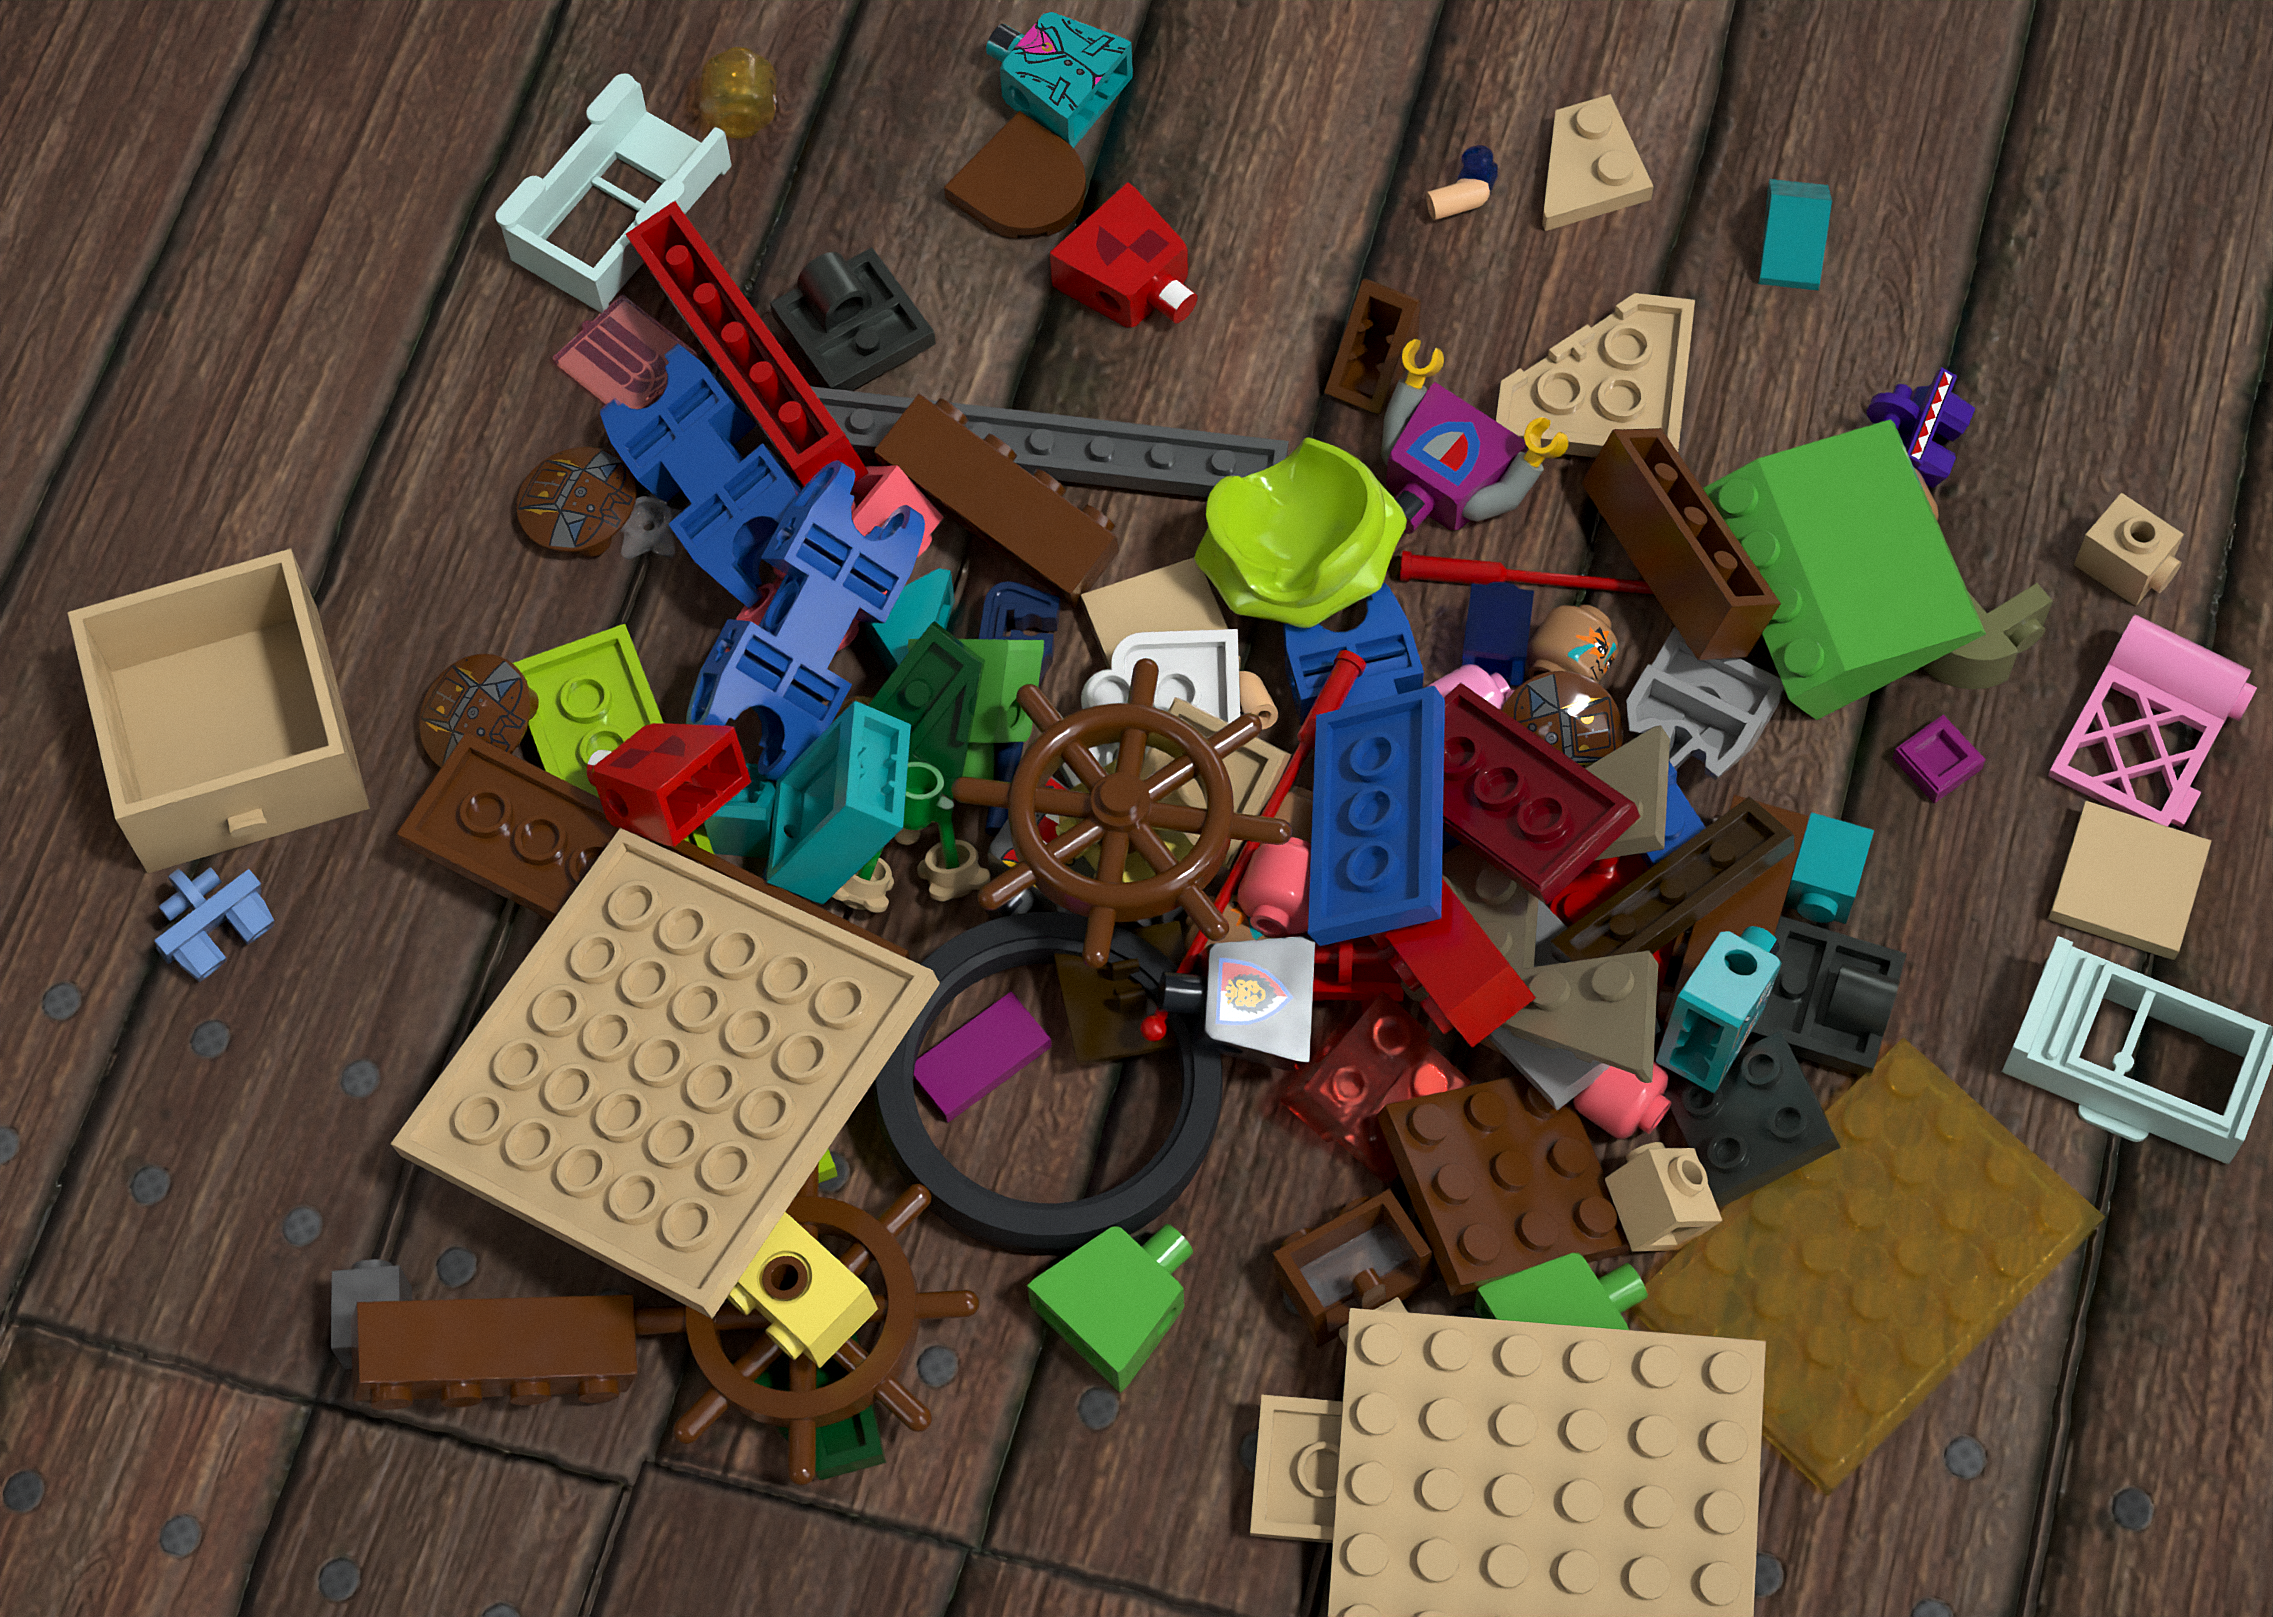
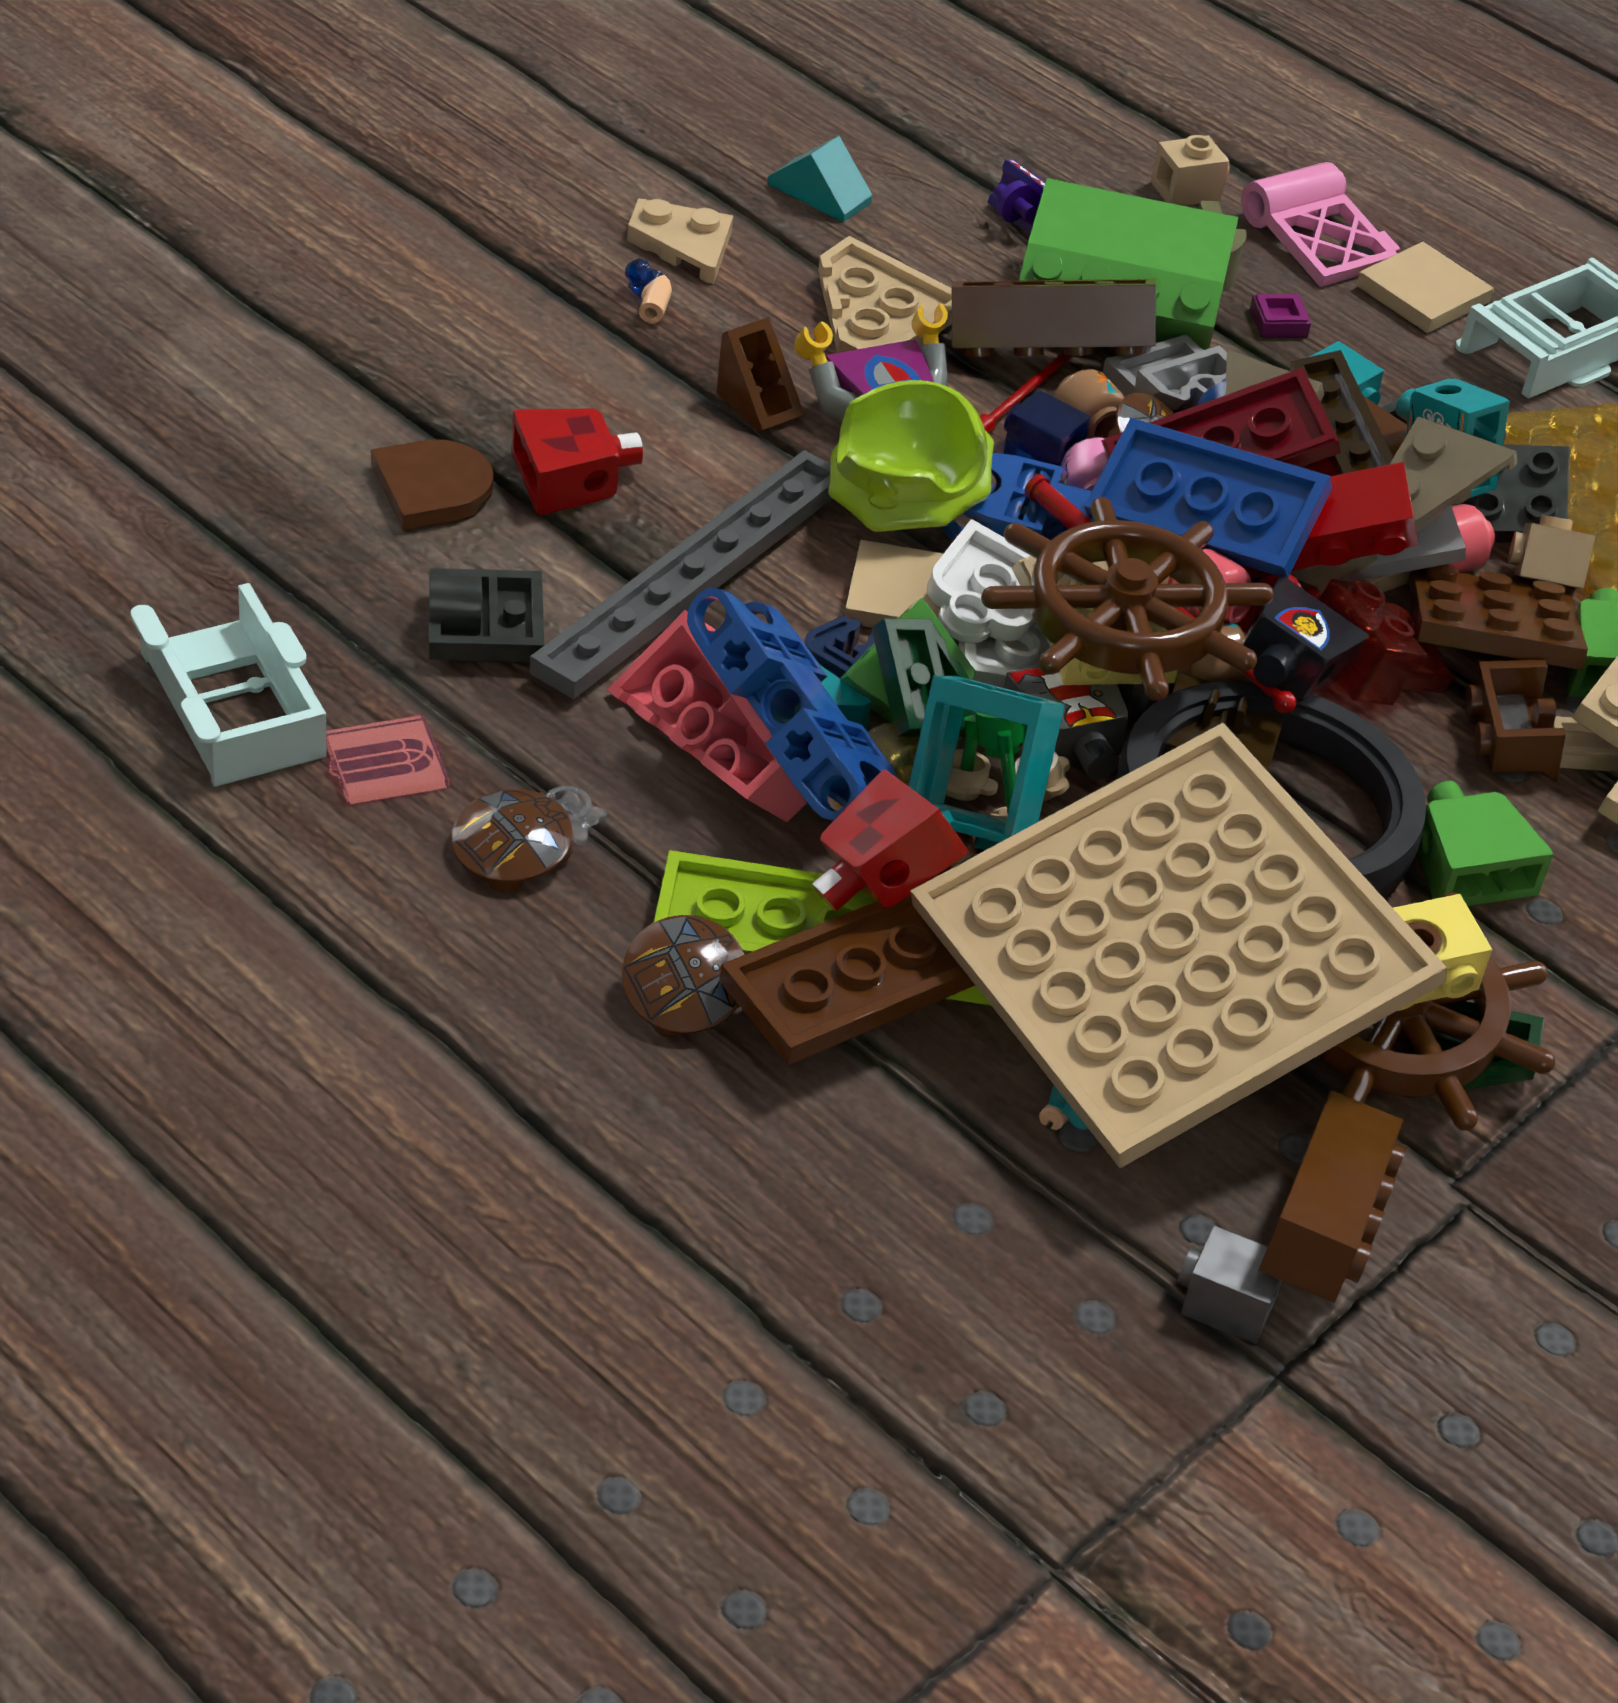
camera: 70 degrees left, 20 degrees down
(189, 938) = (749, 1235): medium blue hips -> none
(217, 711) = (557, 1123): tan container -> none
(689, 446) = (583, 725): blue piece -> none
(738, 92) = (196, 577): clear yellow head -> none
(741, 345) = (485, 654): red brick -> none
(999, 500) = (801, 582): reddish brown brick -> none
(1061, 72) = (359, 411): teal torso -> none

